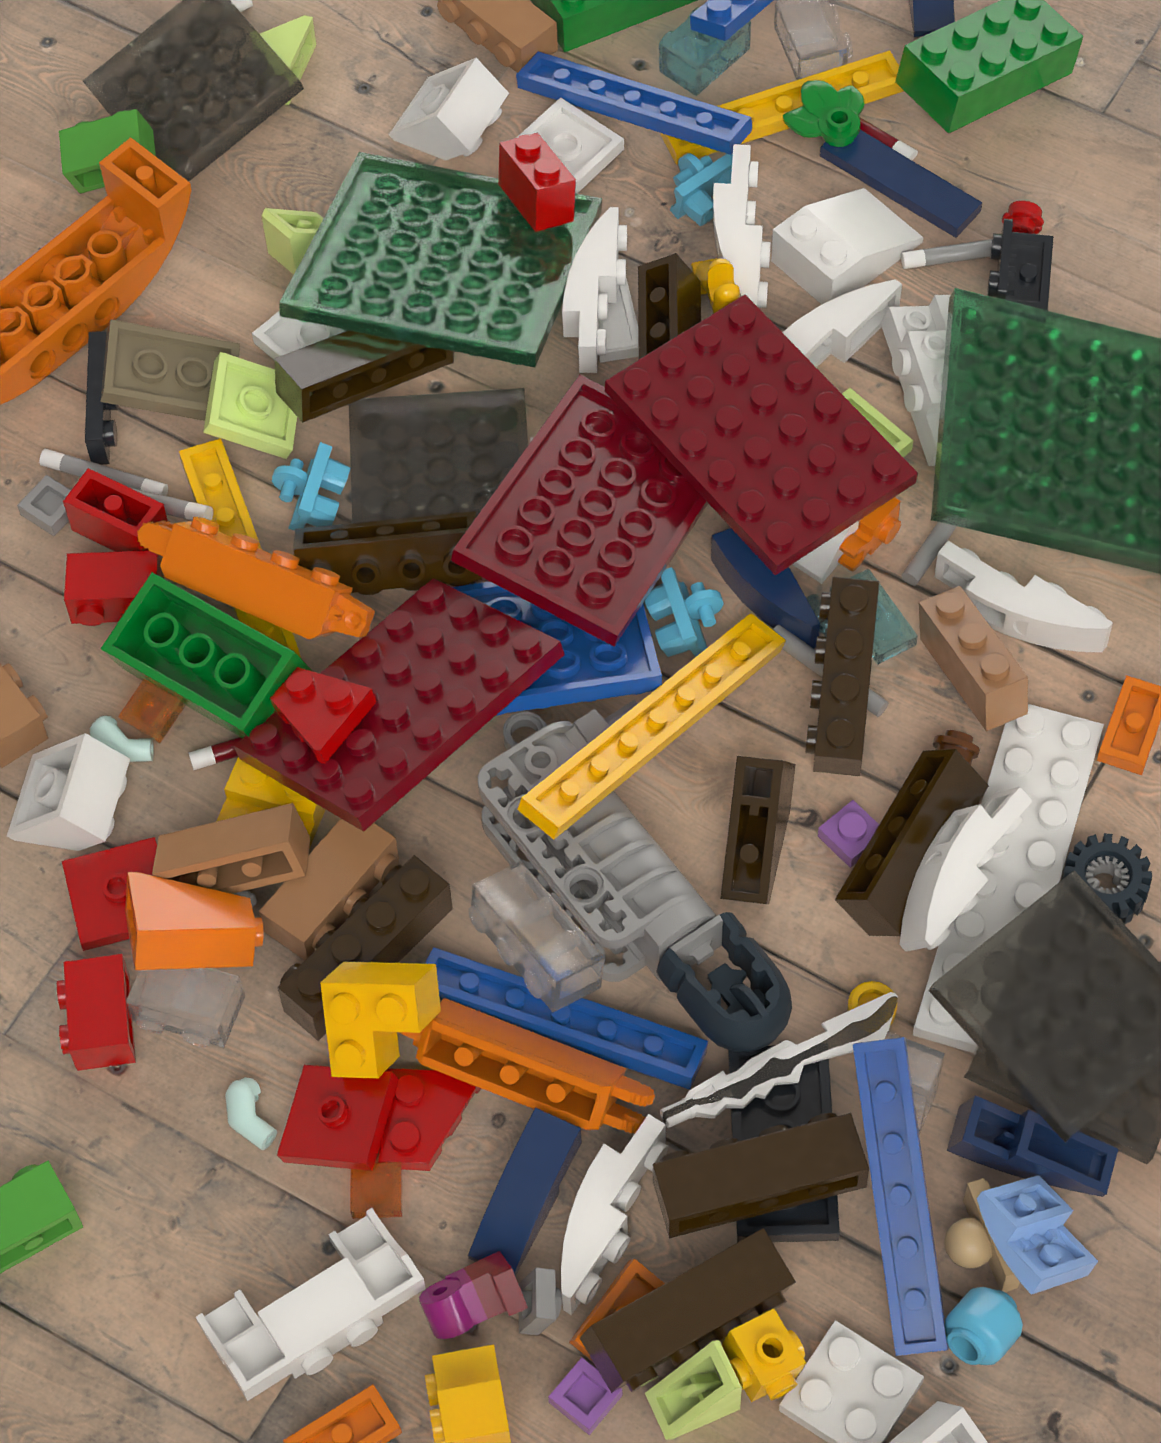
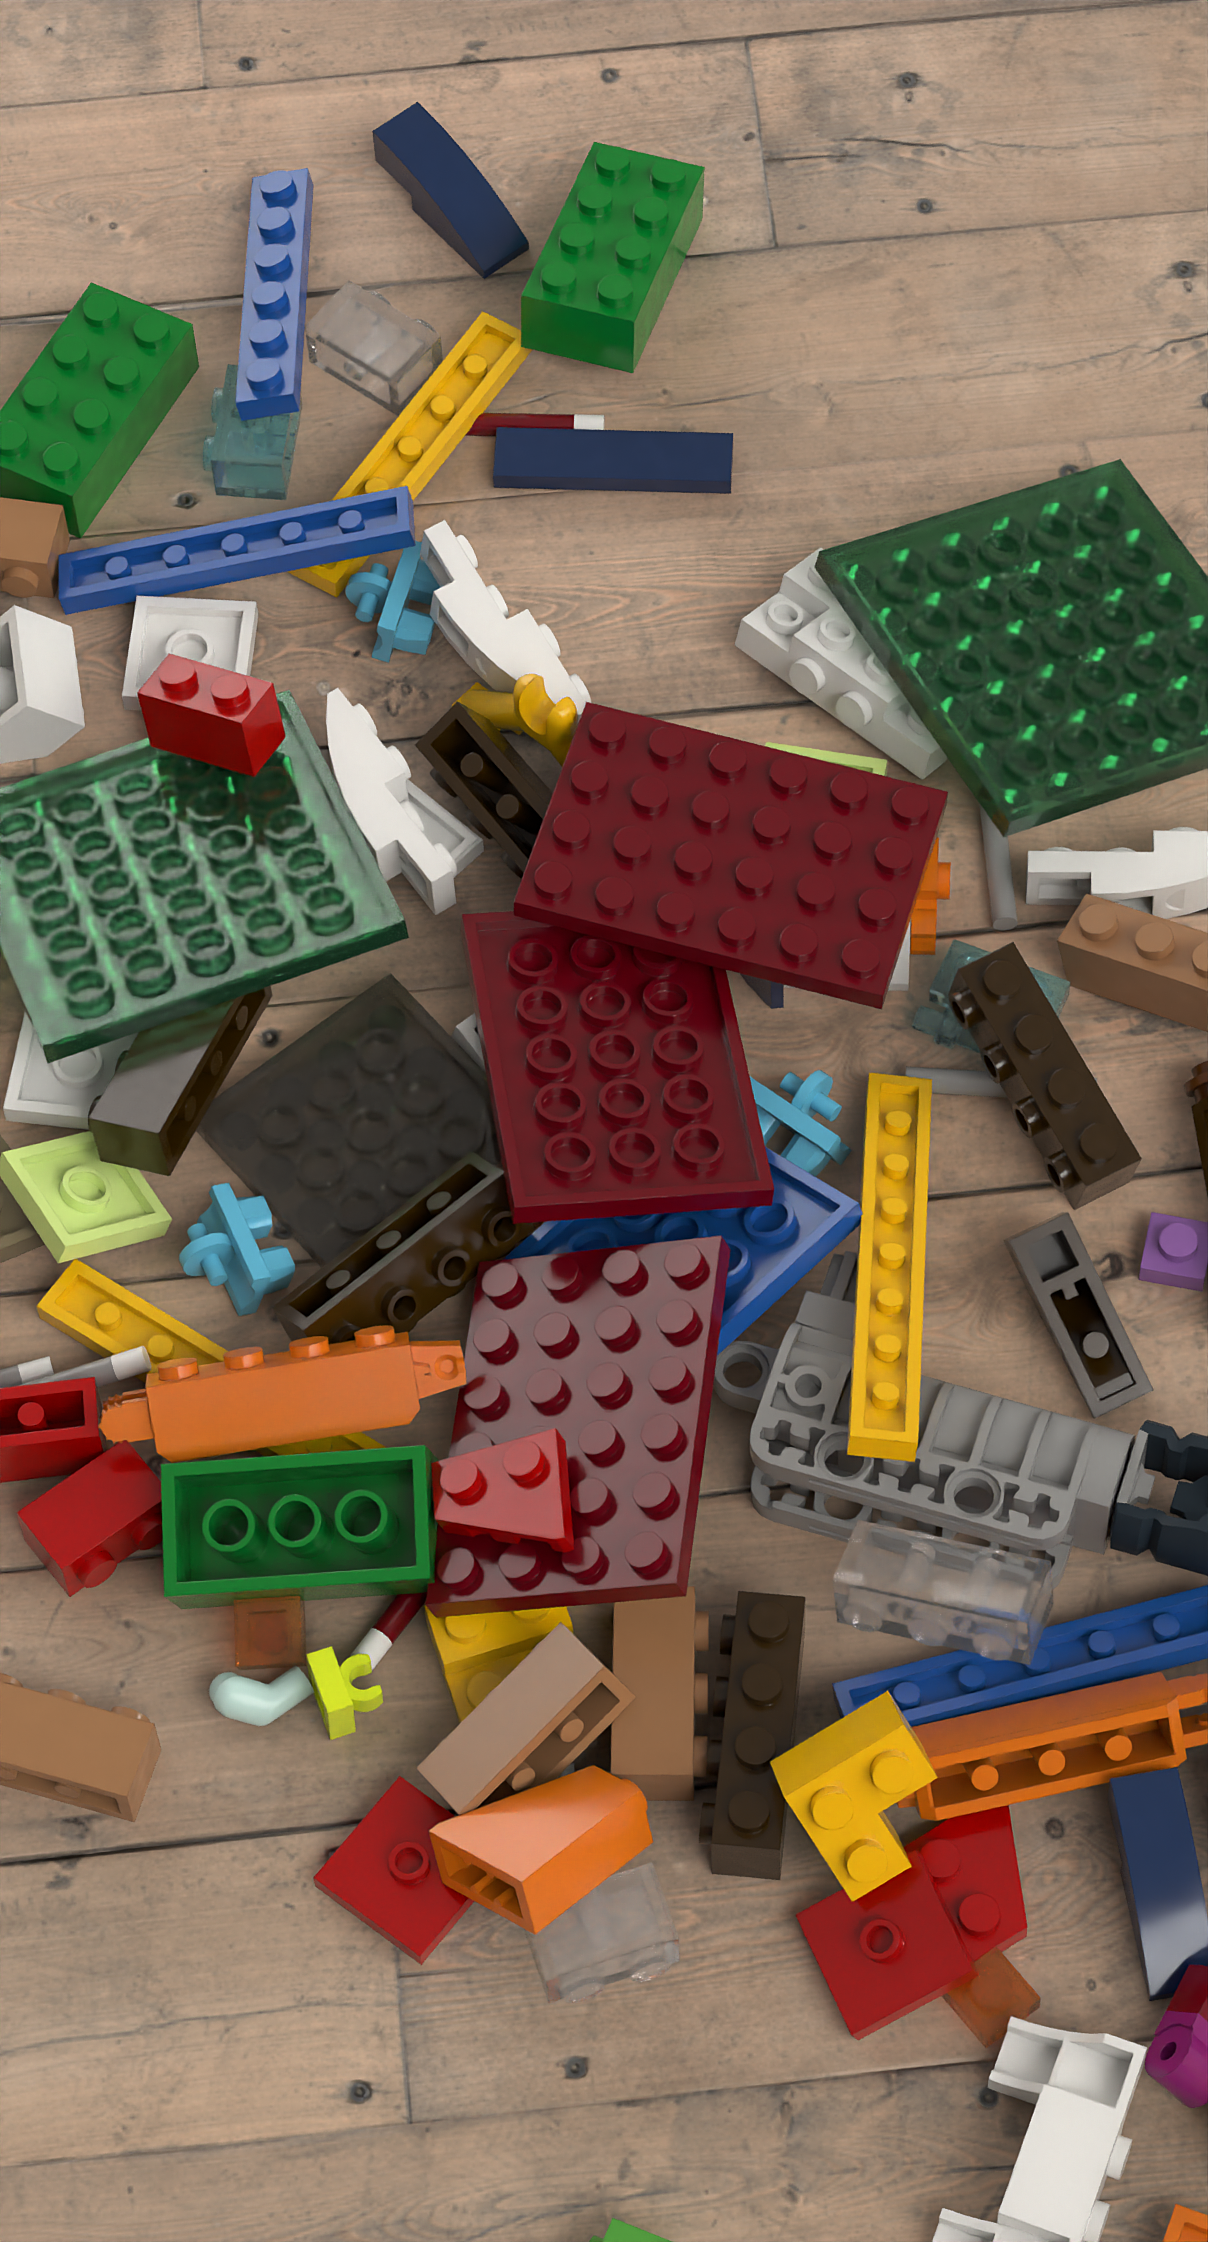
camera: 35 degrees left, 0 degrees up
(70, 795) = (256, 1795): white slope -> none
(98, 1016) = (511, 2018): red brick -> none
(156, 765) = (335, 1693): none -> neon yellow tile
(242, 1113) = (770, 2015): light aqua arm -> none
(770, 596) = (858, 1035): dark blue slope -> none
(827, 113) = (469, 427): green plate -> none
(841, 244) = (615, 580): white slope -> none
(844, 323) = (697, 666): white slope -> none
(946, 254) = (757, 503): light grey bar -> none
(1022, 267) = (846, 486): black bracket -> none
(1025, 216) = (795, 426): red plate -> none

